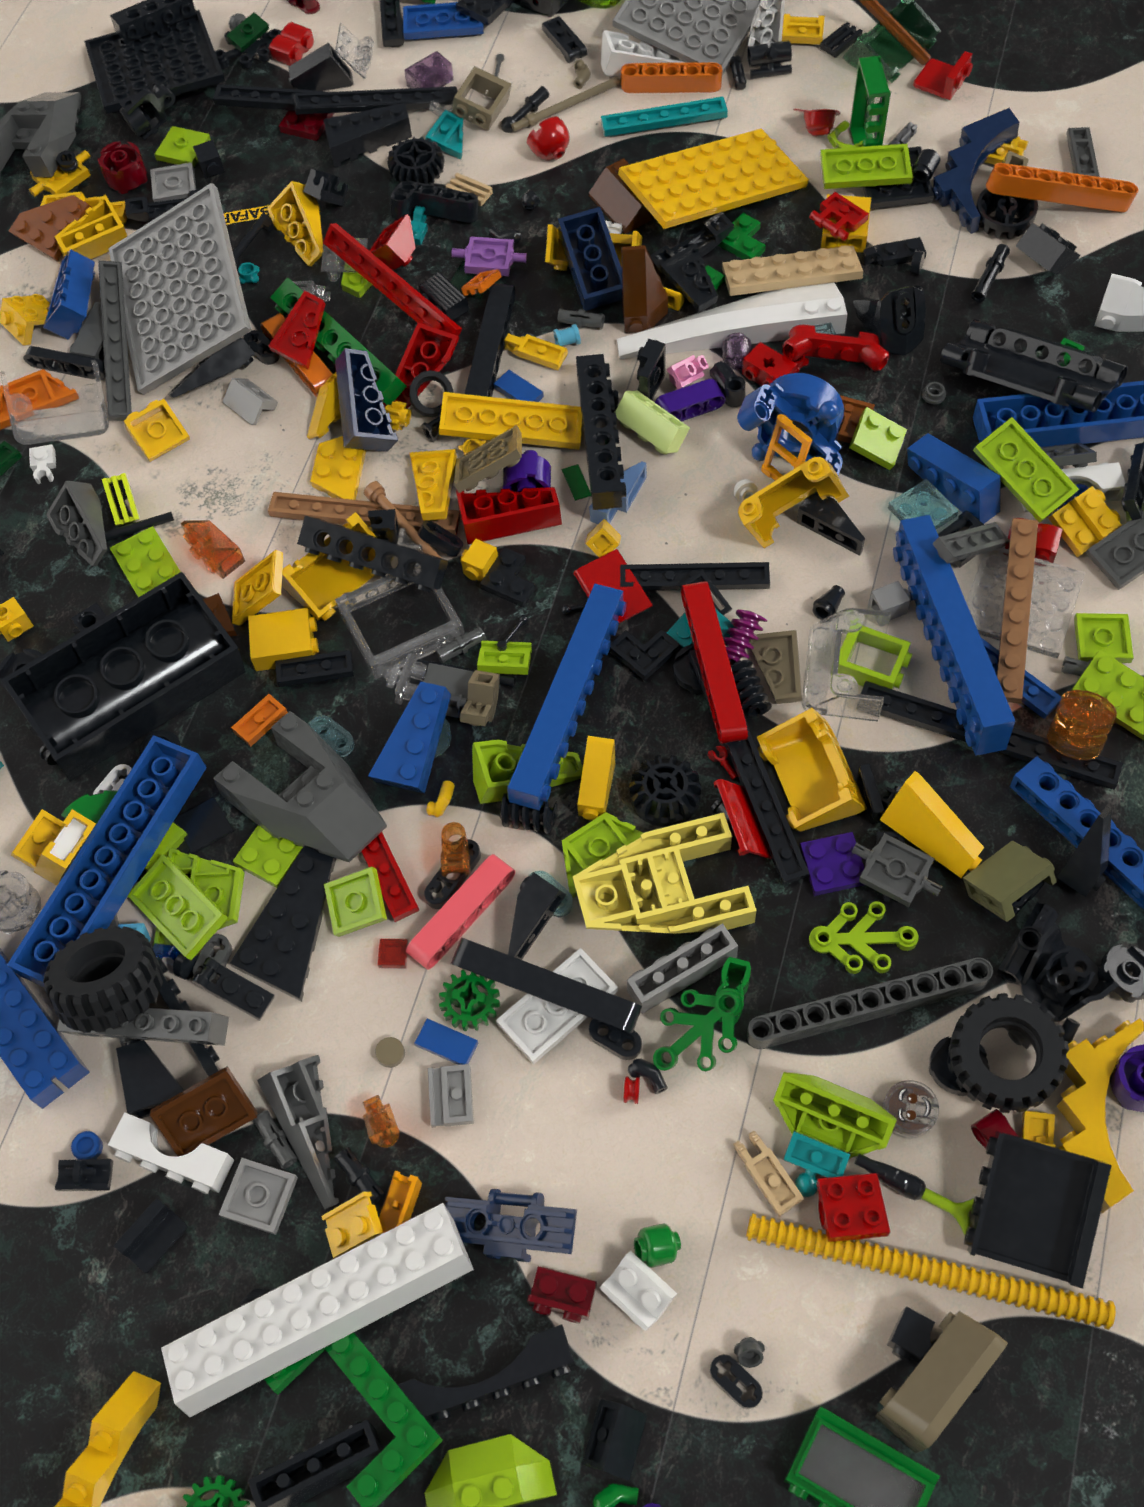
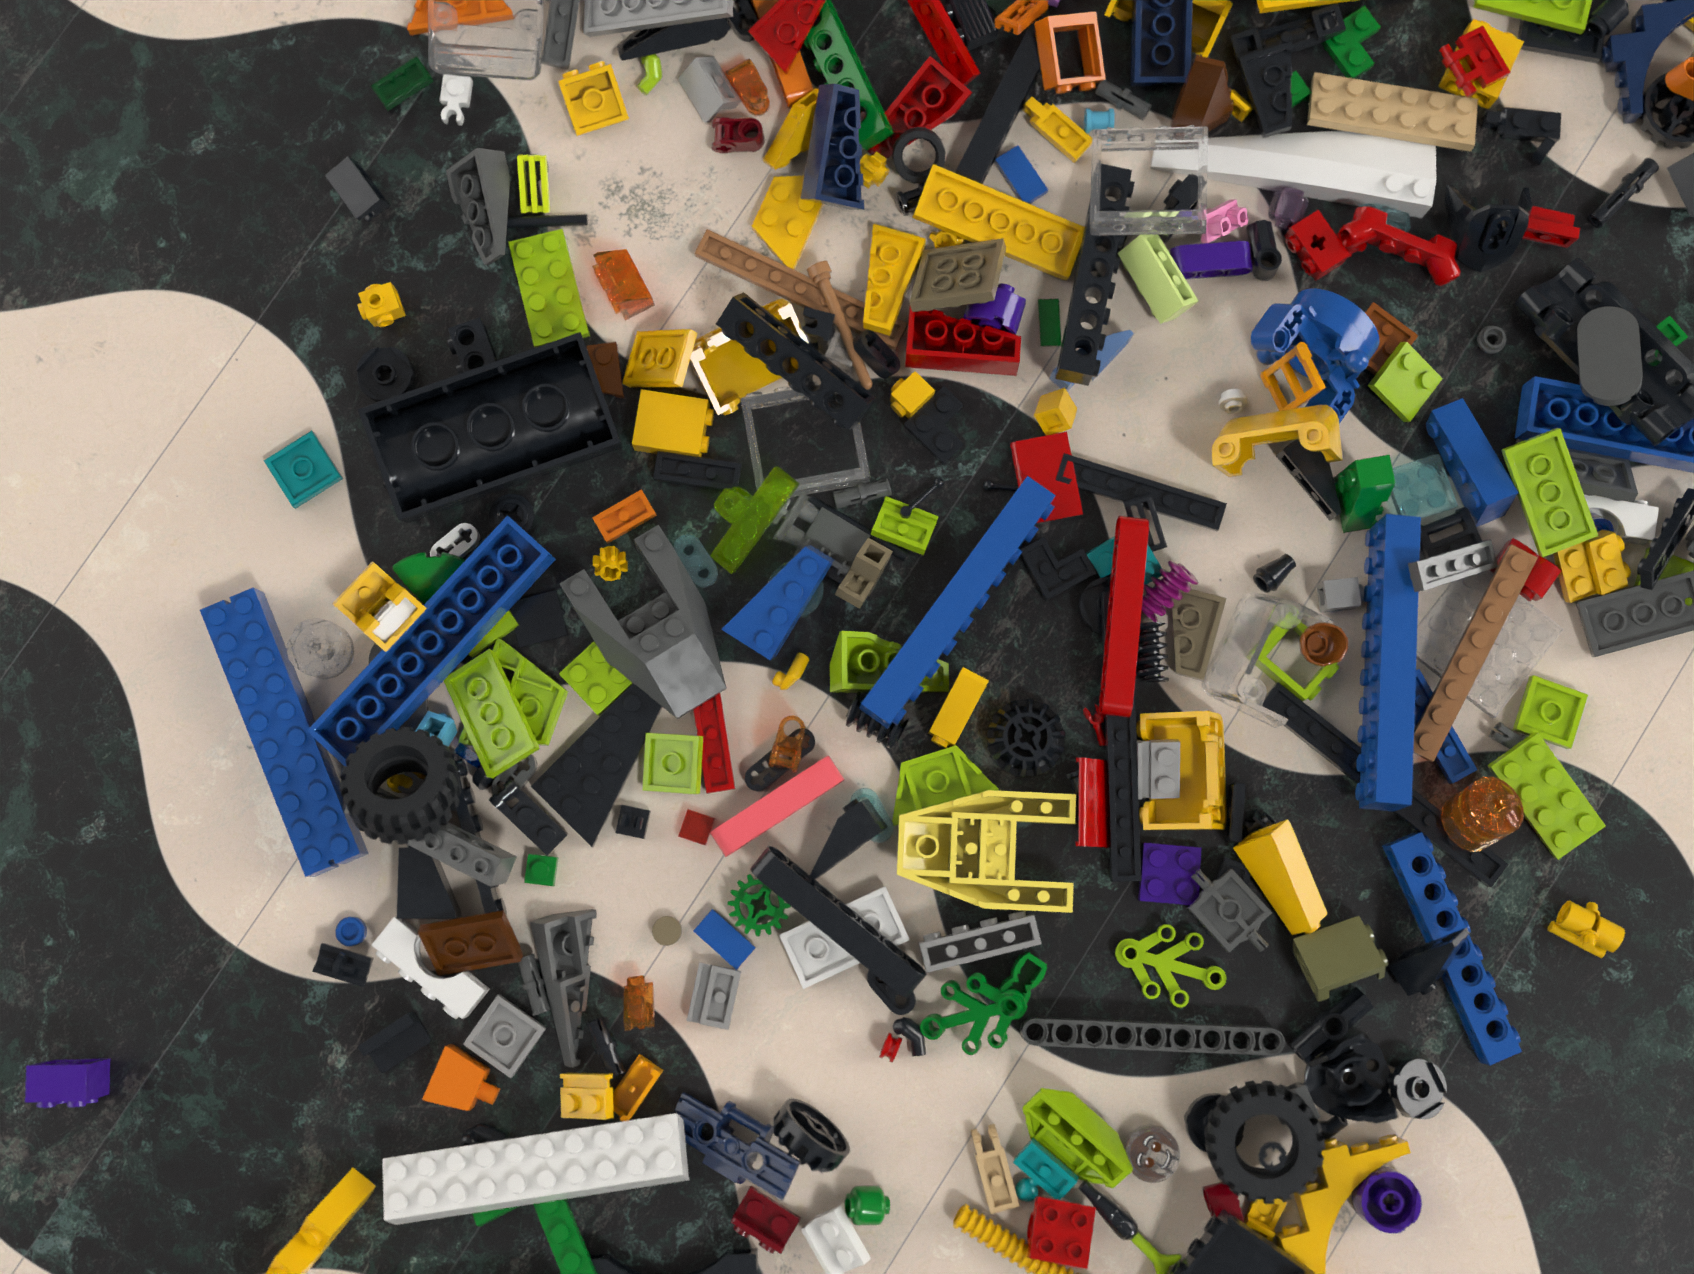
camera: 10 degrees right, 20 degrees up
(201, 401) = (653, 73): none -> lime arm
(223, 1253) = (460, 1081): none -> orange torso
(254, 764) = (610, 563): none -> yellow gear
(257, 1034) = (541, 870): none -> green plate
(281, 389) = (749, 85): none -> clear orange piece
(282, 421) = (731, 133): none -> dark red piece
(332, 967) = (633, 821): none -> black tile
(368, 683) = (750, 516): none -> clear neon green plate
(535, 276) = (1090, 48): none -> orange window
(579, 1191) = (810, 1136): none -> black gear
(626, 373) = (1149, 221): none -> clear window
(790, 777) = (1158, 769): none -> light grey plate
(874, 513) = (1362, 490): none -> green wedge
(890, 631) = (1323, 644): none -> dark orange hair
(946, 311) = (1551, 227): none -> red panel
(1016, 1042) = (1263, 1154): none -> black bush
(1028, 364) = (1609, 355): none -> dark grey tile

